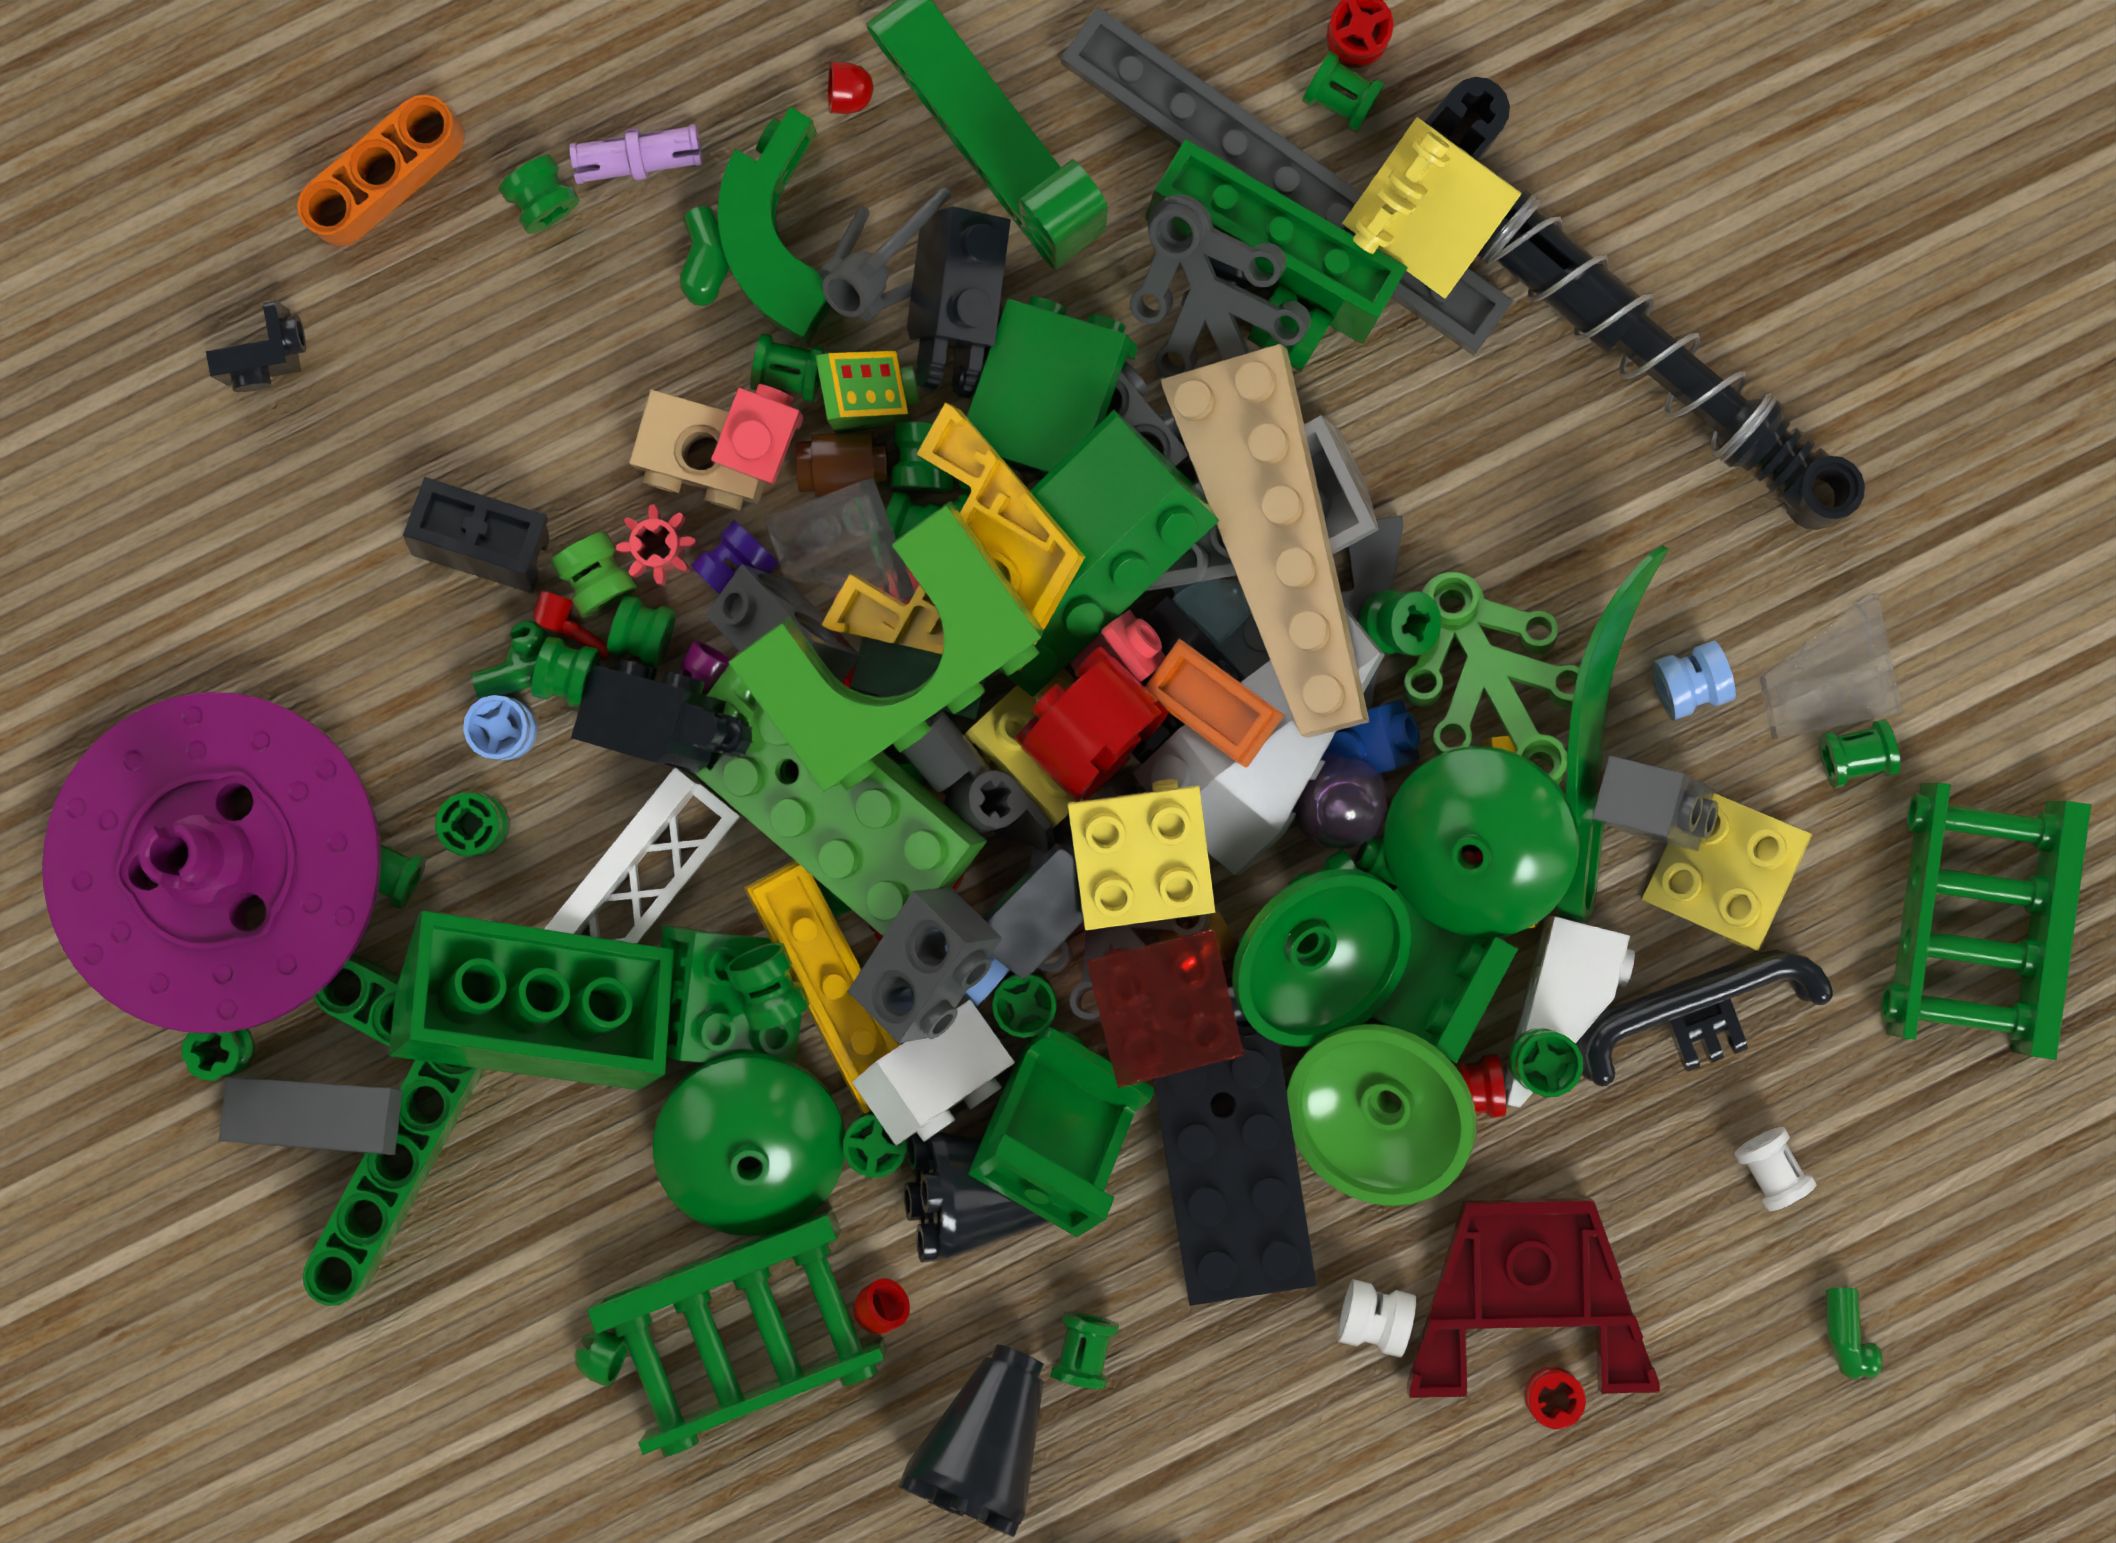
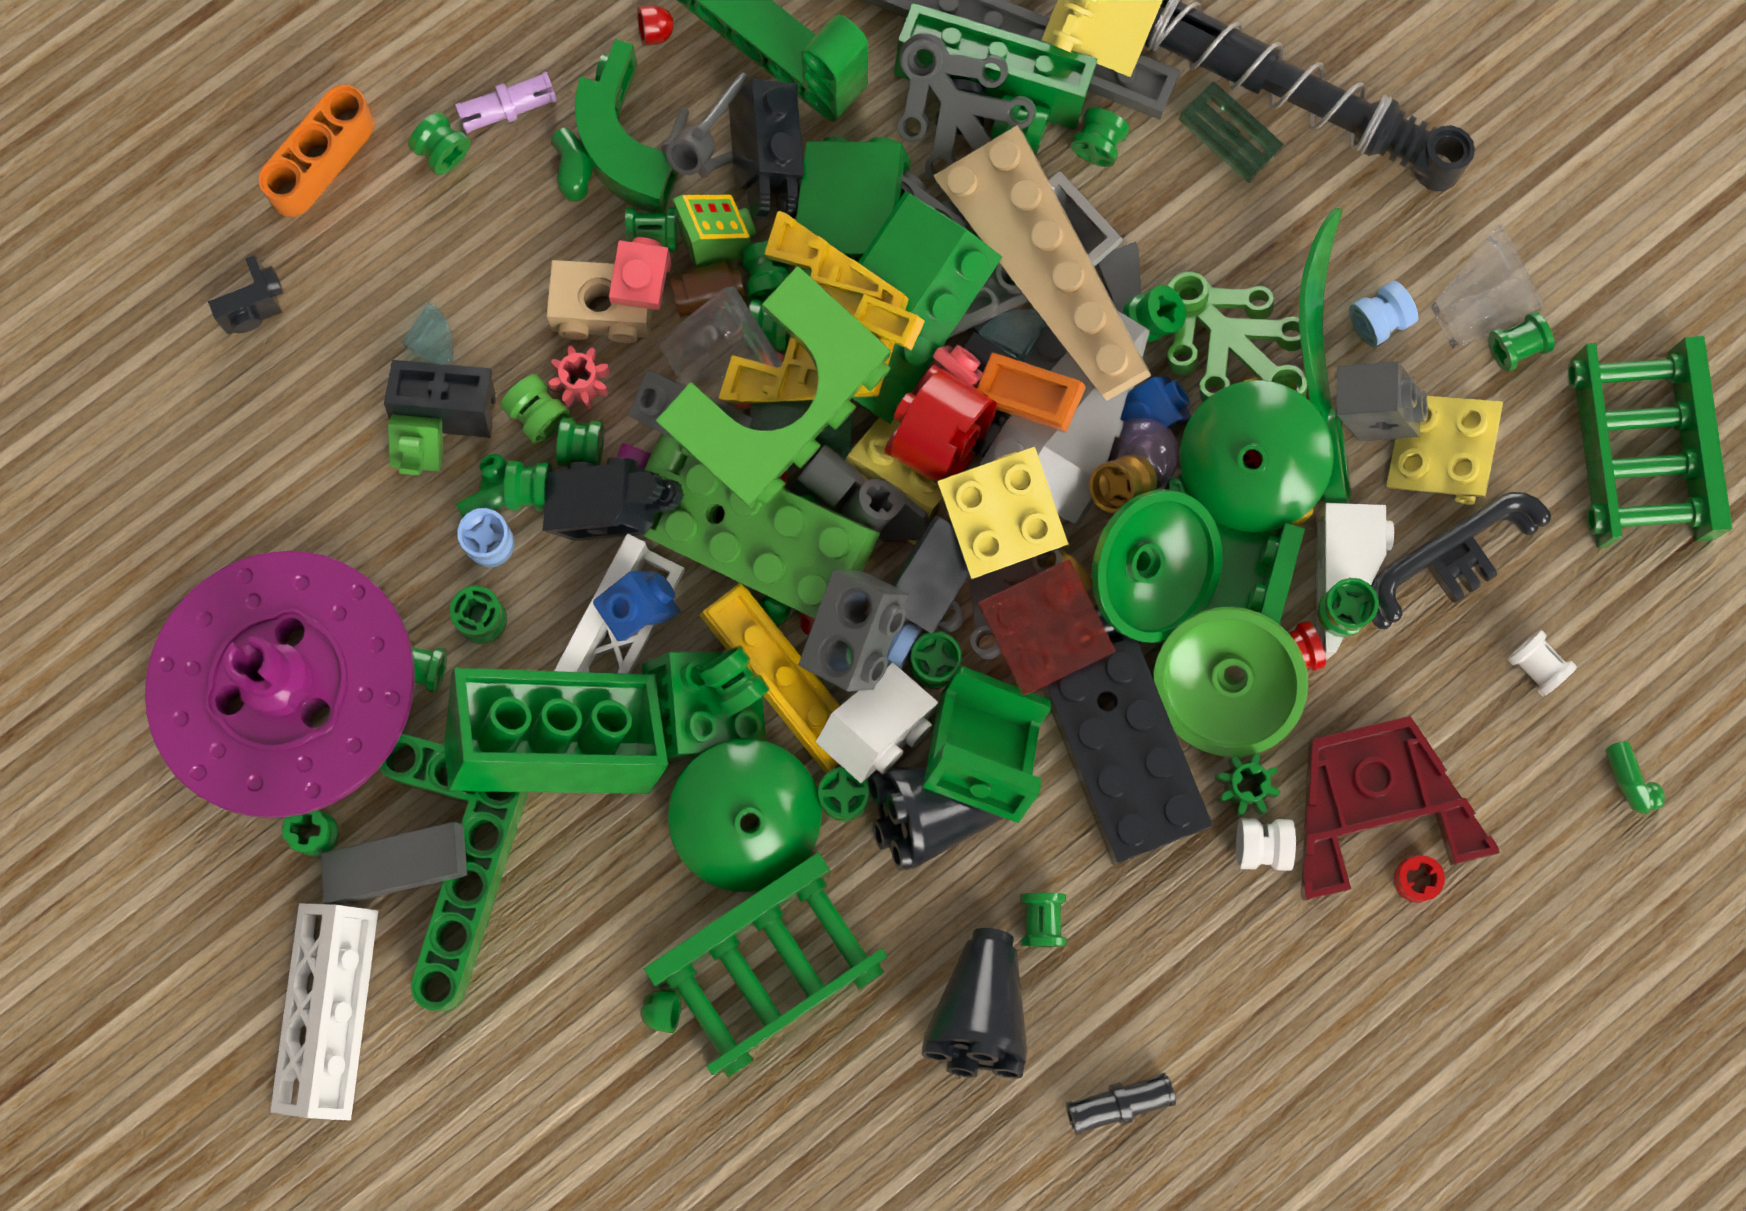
camera: 15 degrees left, 10 degrees down
(202, 1275) = (330, 1012): none -> white fence
(434, 589) = (415, 444): none -> bright green tile
(482, 448) = (431, 336): none -> clear light blue tile
(553, 614) = (509, 446): red hand -> none
(668, 859) = (636, 601): none -> blue bracket
(740, 549) = (640, 359): dark purple wheel -> none
(881, 1307) = (875, 921): red hinge -> none
(1050, 587) = (889, 321): none -> yellow piece
(1303, 844) = (1111, 485): none -> pearl gold wheel
(1388, 1248) = (1247, 771): none -> green gear
(1389, 367) = (1100, 137): none -> green wheel
(1540, 404) = (1222, 147): none -> clear green tile

